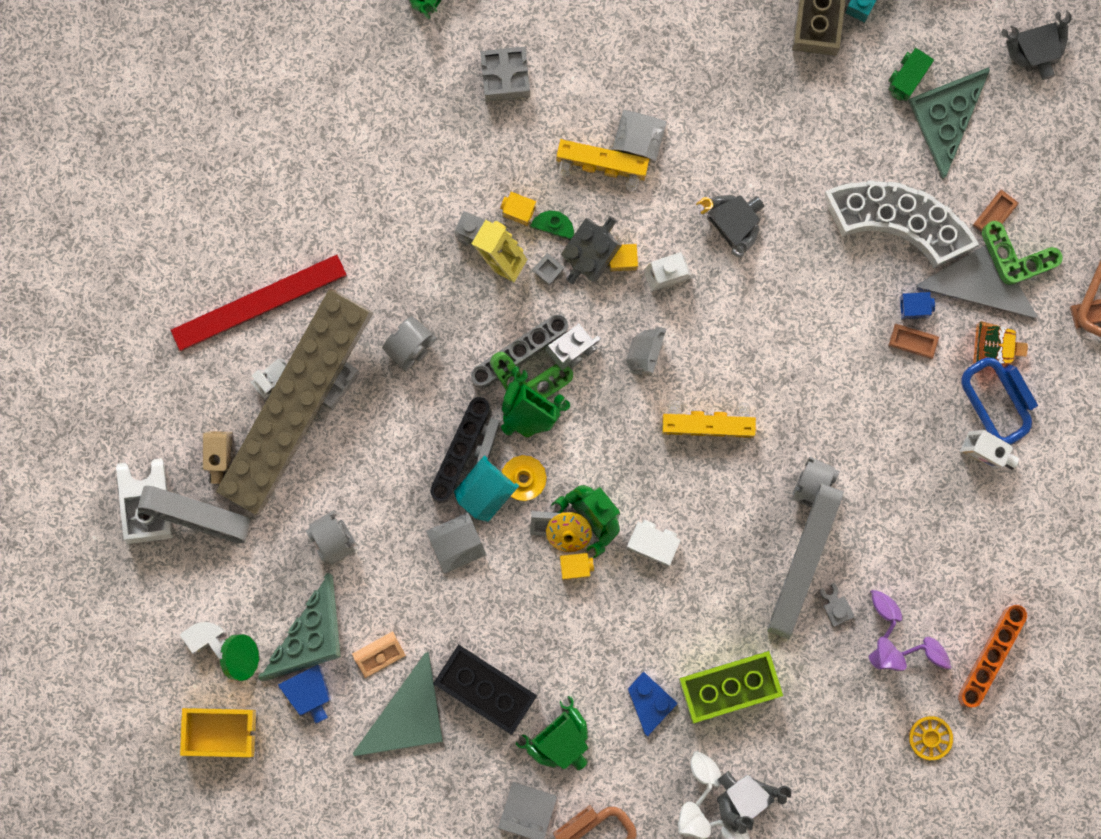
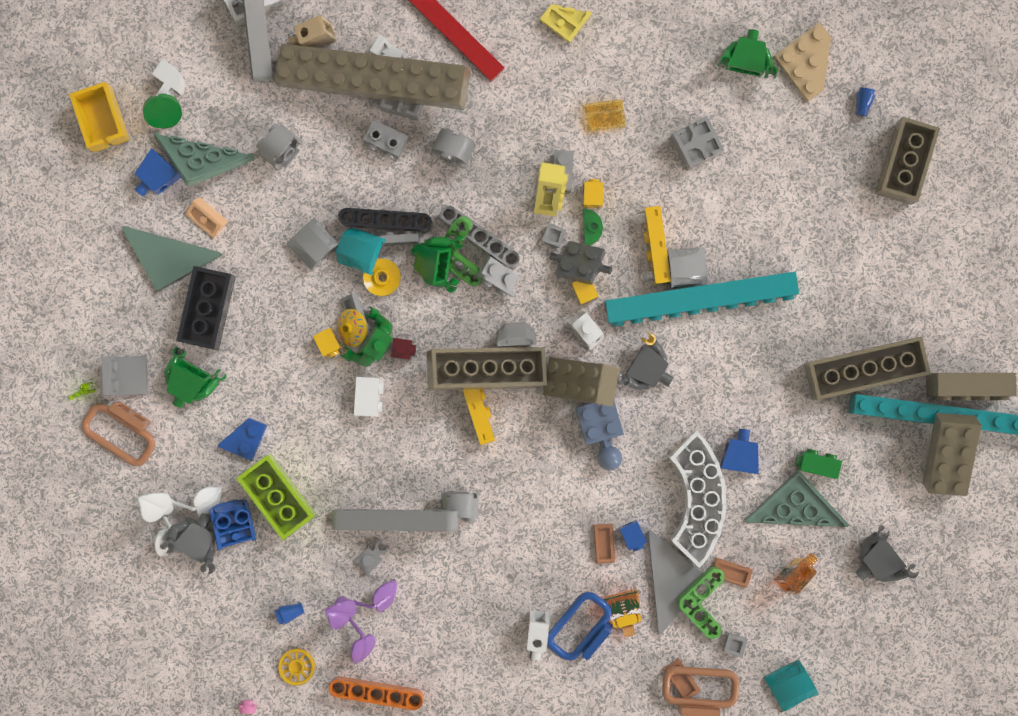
camera: 70 degrees right, 5 degrees up
(311, 168) = (565, 21): none -> light yellow wing
(369, 416) = (386, 140): none -> light grey brick
(434, 163) = (605, 115): none -> clear yellow plate
(615, 483) = (403, 349): none -> dark red brick
(672, 395) = (486, 368): none -> dark tan brick
(679, 133) = (700, 298): none -> teal brick
(726, 295) = (581, 381): none -> dark tan brick
(741, 749) = (232, 523): none -> blue slope
(775, 295) = (599, 425): none -> sand blue brick
(866, 723) = (288, 613): none -> blue cone
(868, 154) = (741, 454): none -> blue torso
(957, 810) = (247, 707): none -> bright pink plate
(1023, 142) = (797, 574): none -> clear orange torso
(1077, 239) = (735, 645): none -> light grey plate

